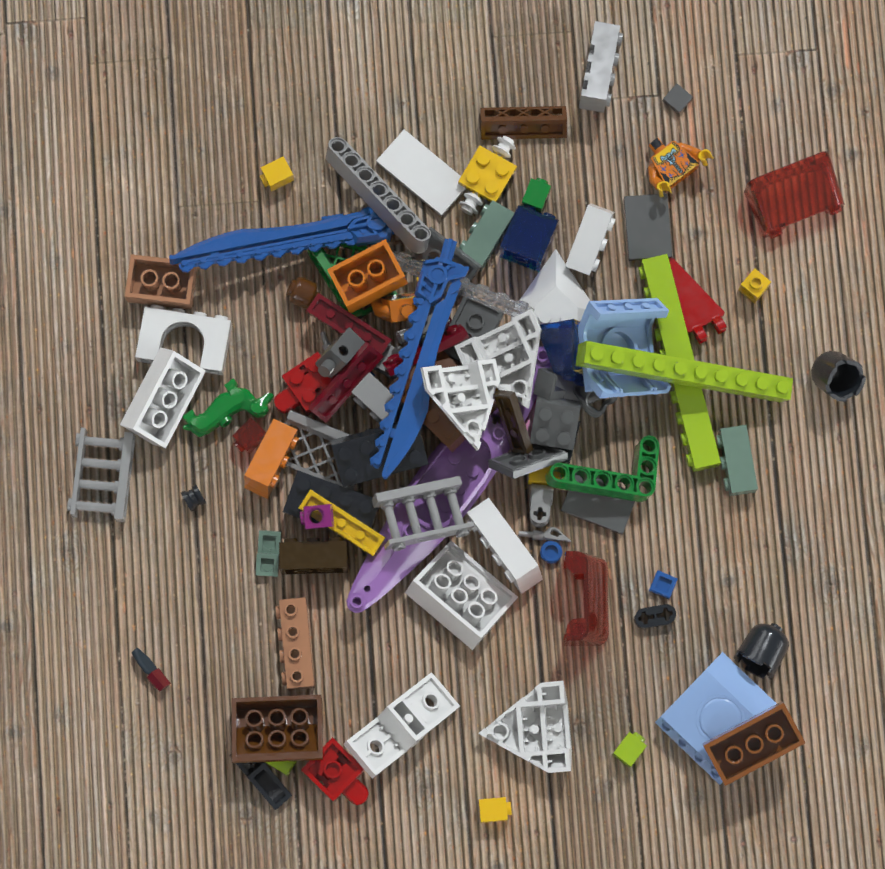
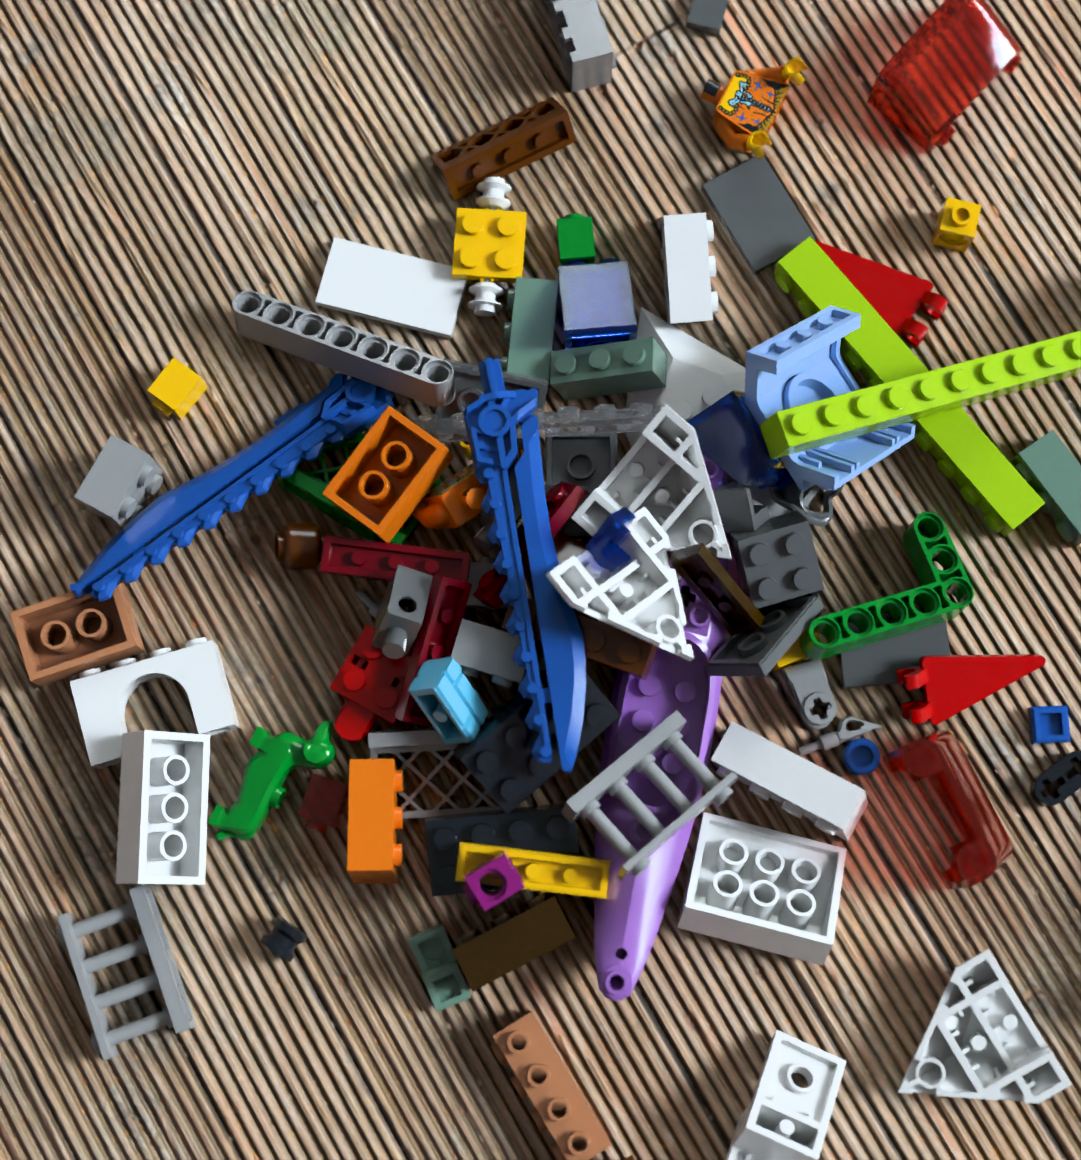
camera: 25 degrees left, 0 degrees up
(221, 212) = (119, 482): none -> light grey brick
(341, 412) = (448, 700): none -> medium azure brick
(463, 367) = (608, 538): none -> clear blue bracket
(517, 275) = (608, 369): none -> sand green brick
(625, 537) = (959, 682): none -> red flag

